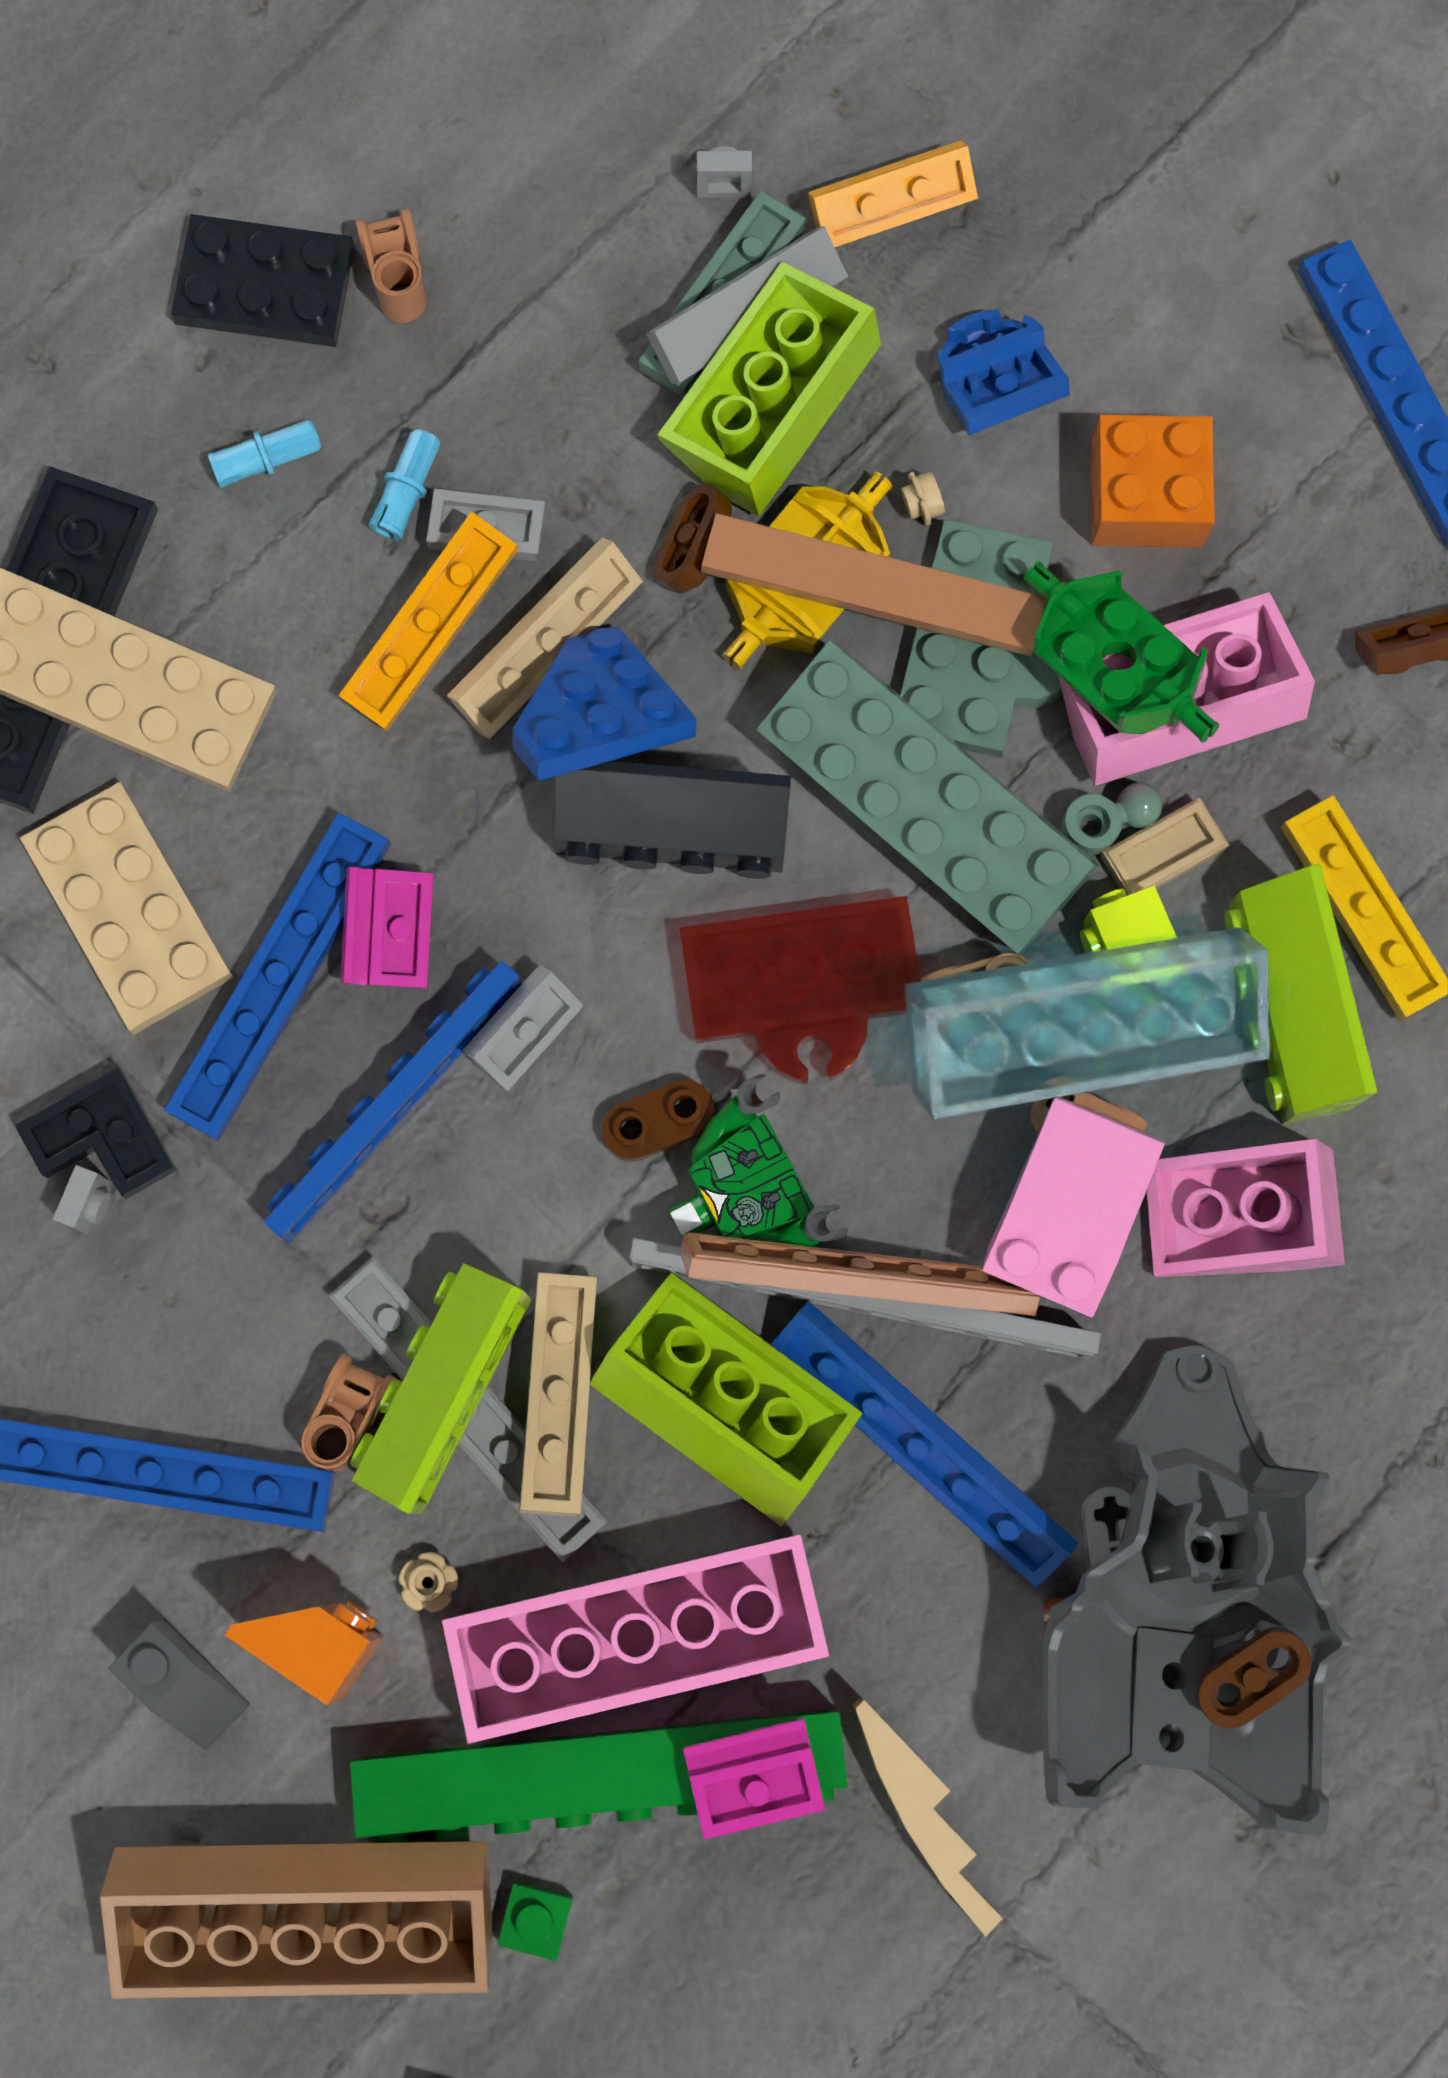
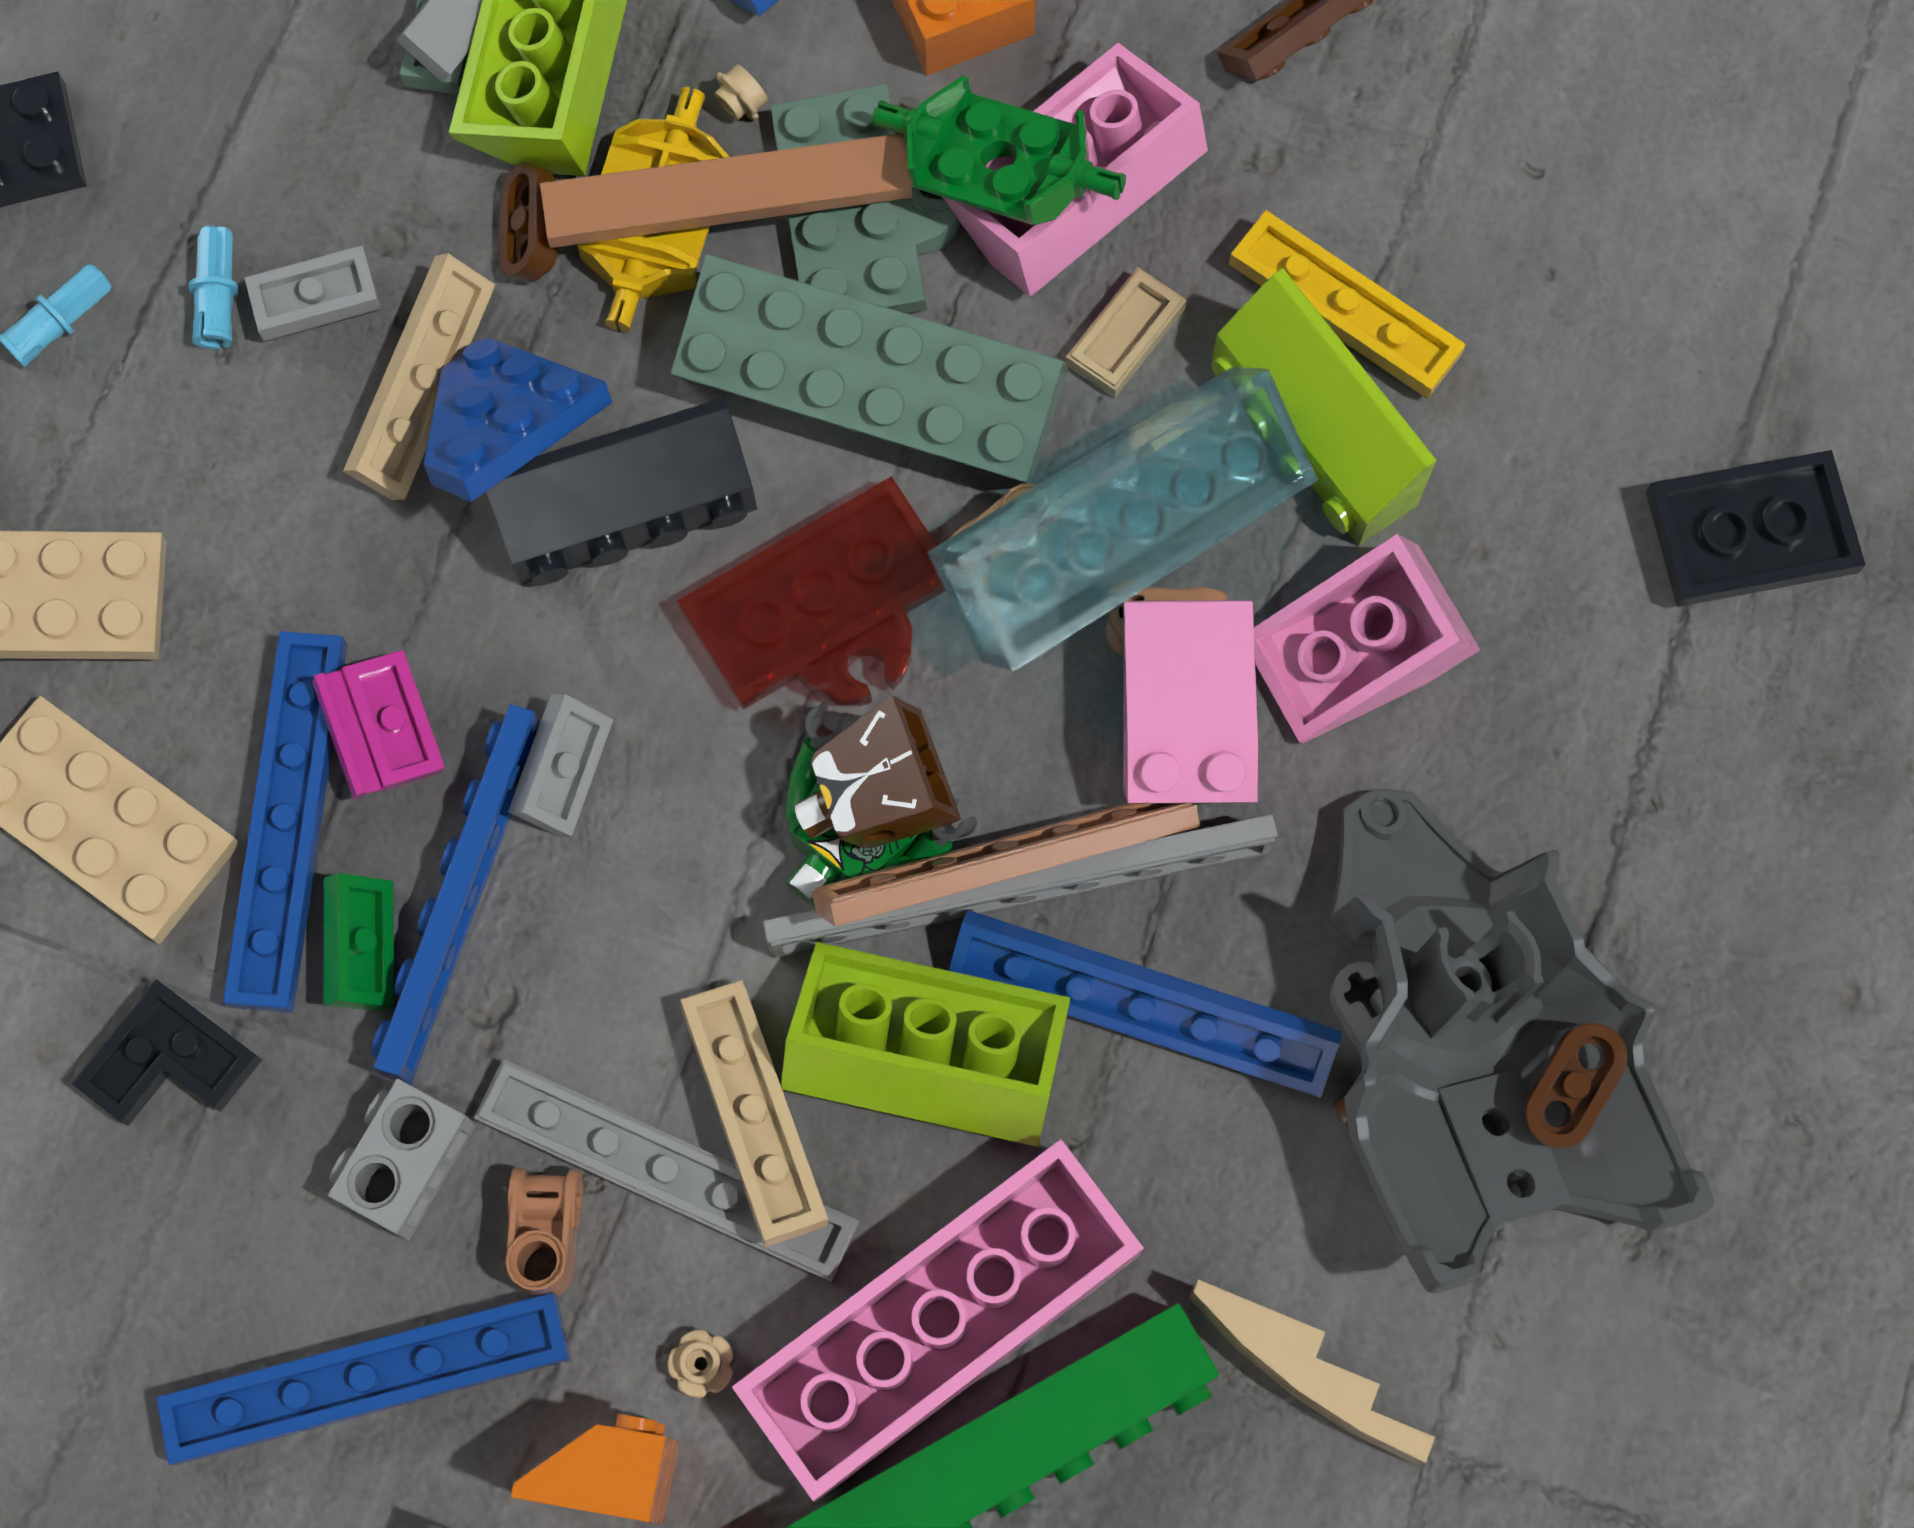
camera: 20 degrees left, 5 degrees down
(83, 1200) = (175, 1130): light grey plate -> none
(263, 1318) = (416, 1167): none -> light grey brick
(294, 1107) = (358, 942): none -> green plate
(393, 259) = (110, 76): nougat piece -> none
(429, 621) = (294, 407): light orange plate -> none
(440, 1389) = (630, 1153): lime slope -> none
(659, 1122) = (742, 803): reddish brown plate -> none
(753, 1778) = (1121, 1405): dark pink plate -> none
(779, 1165) = (879, 780): none -> reddish brown torso
(1125, 920) = (1117, 407): neon yellow brick -> none
(1136, 806) = (1079, 300): sand green plate -> none

